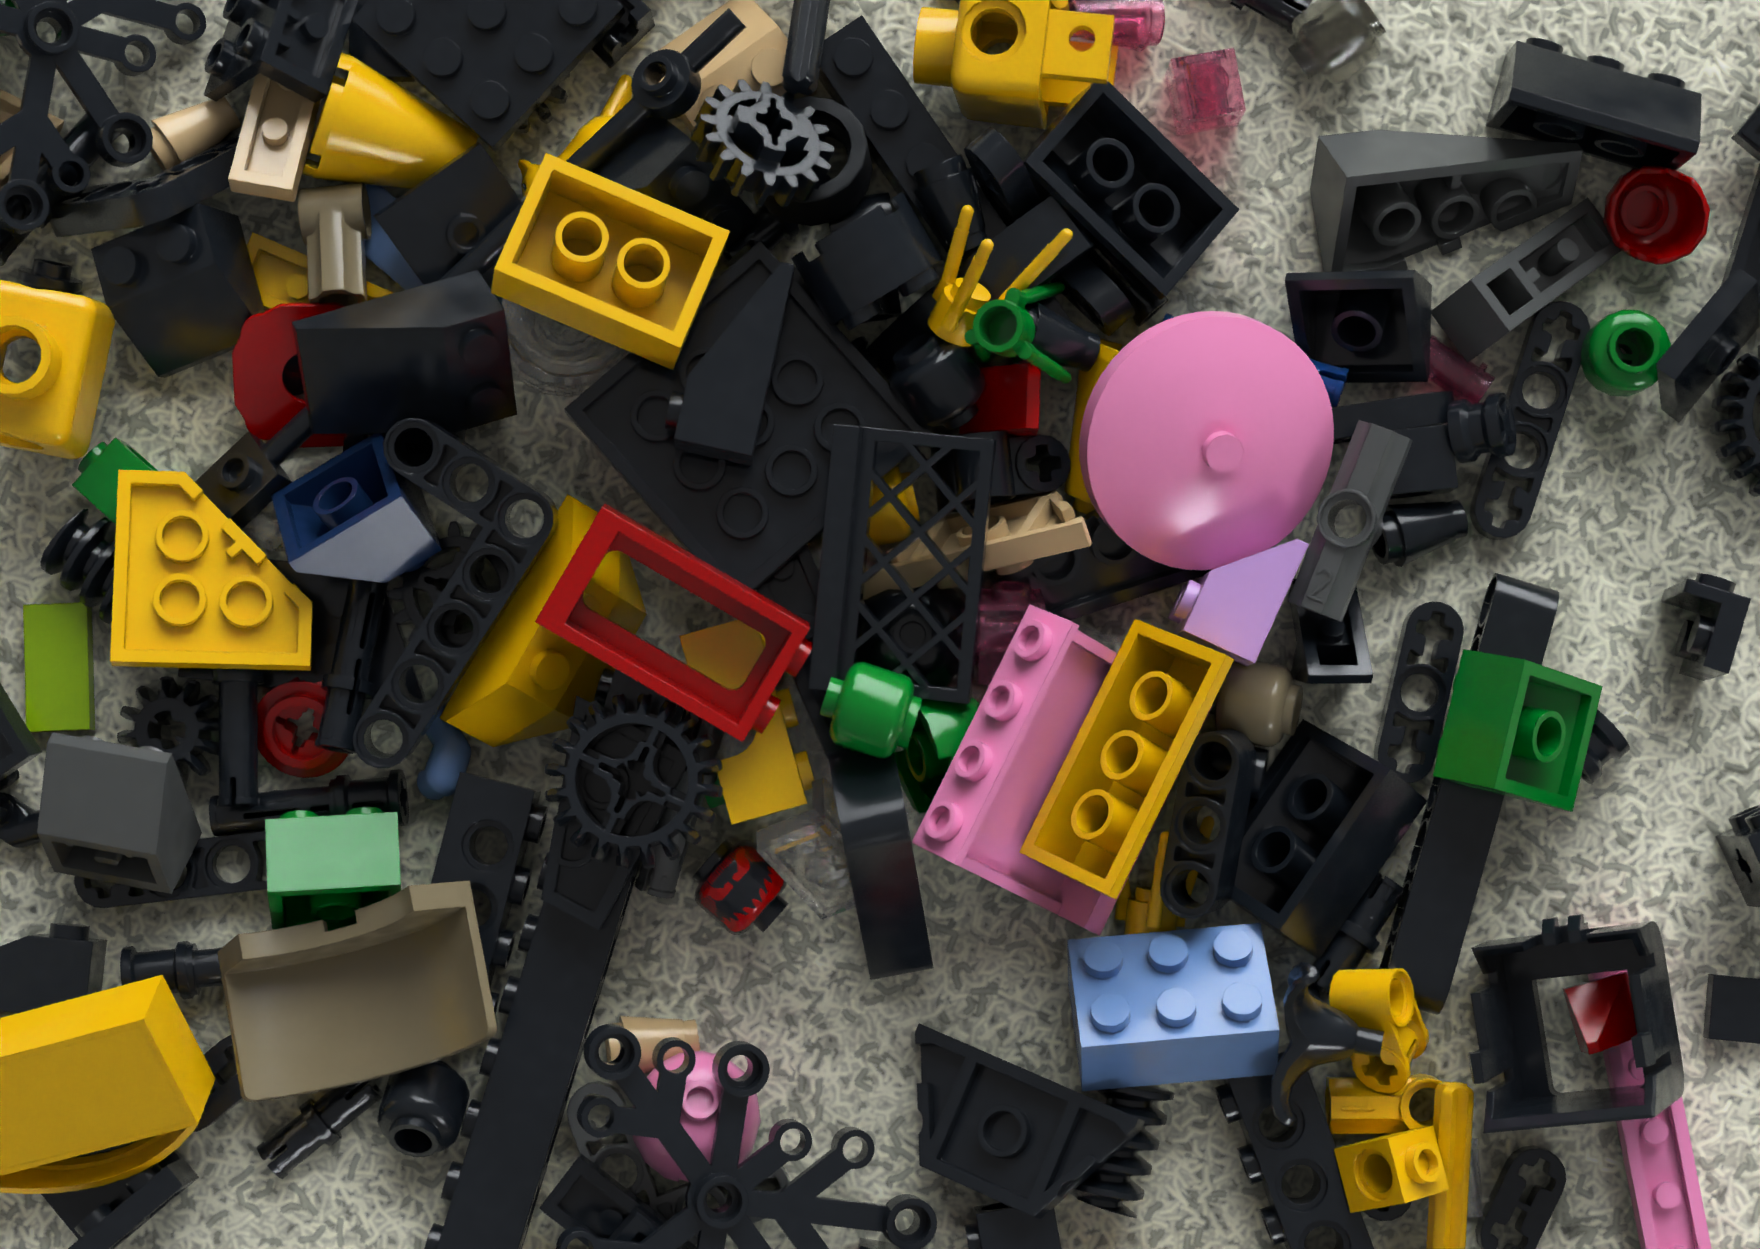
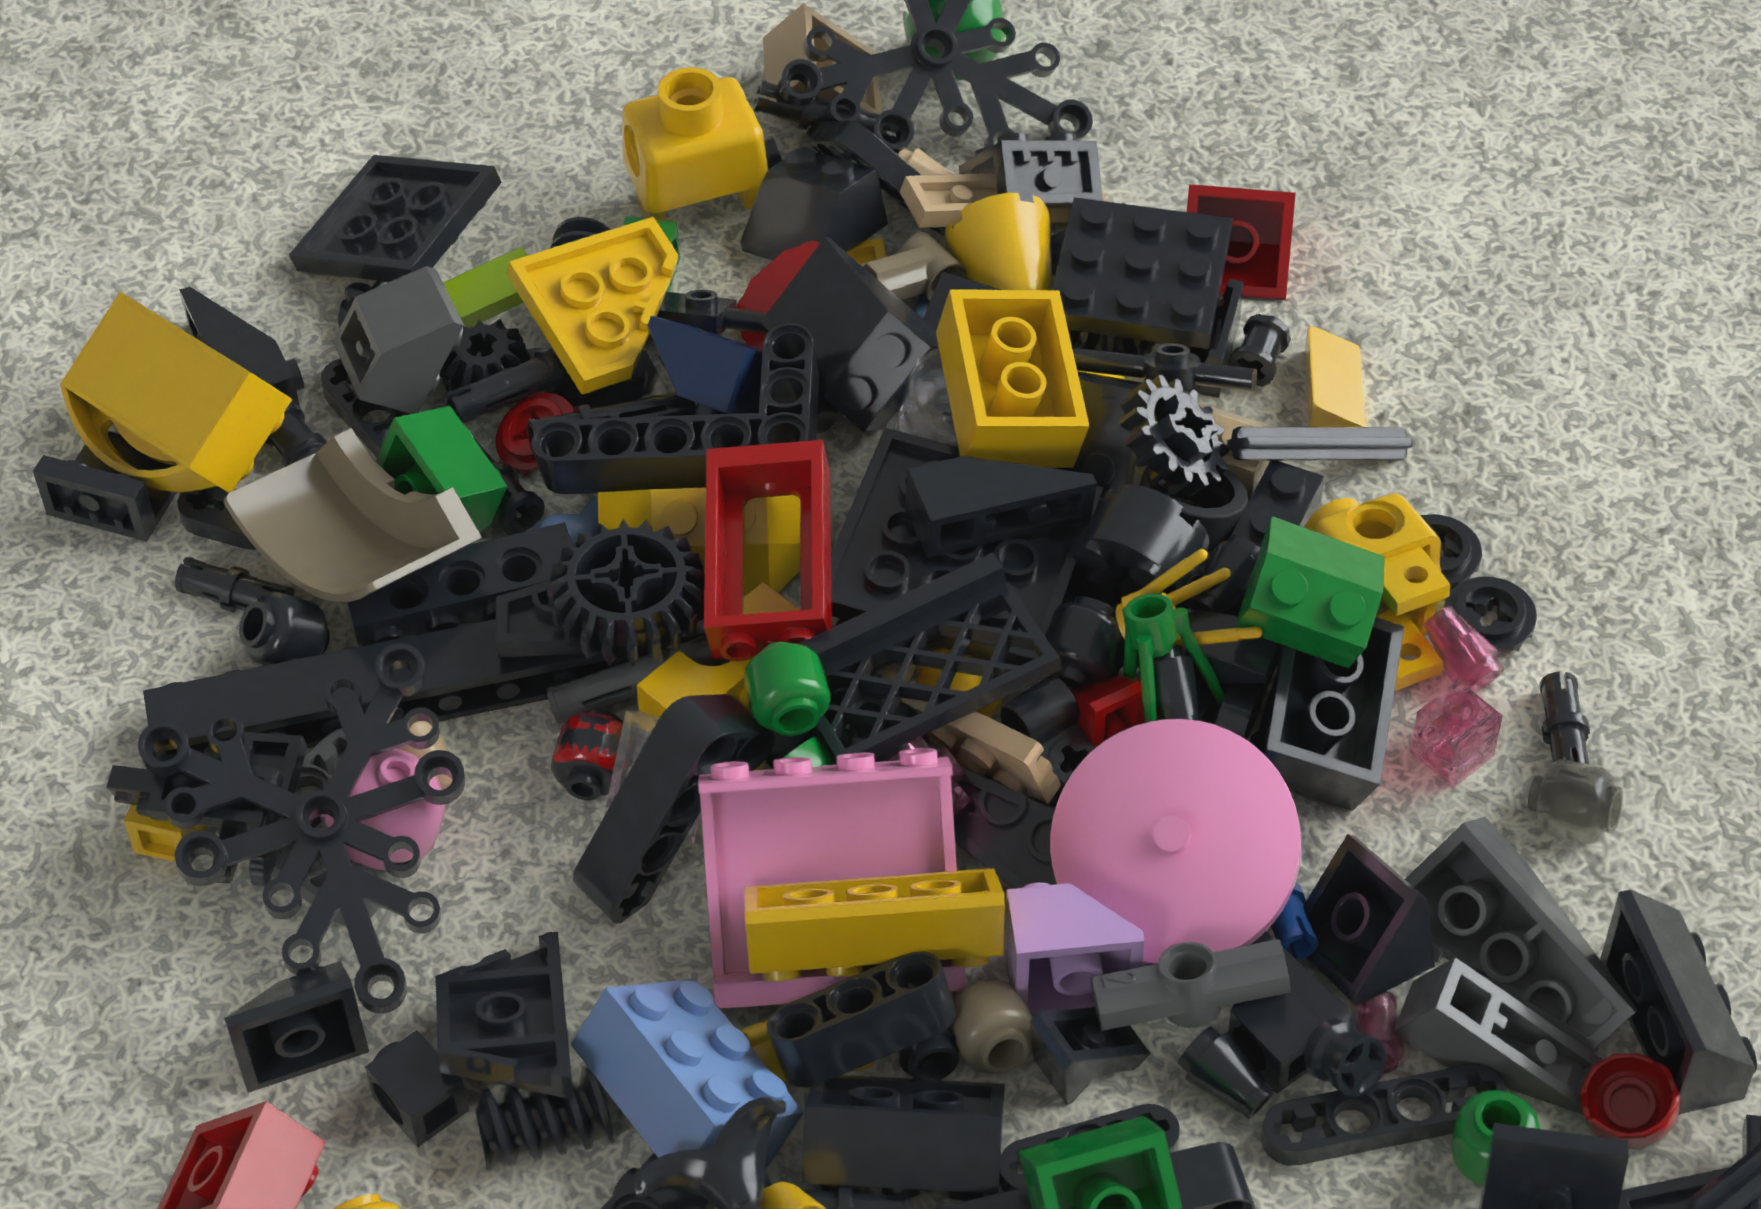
camera: 60 degrees right, 35 degrees down
(1058, 151) = (1313, 593): none -> green slope

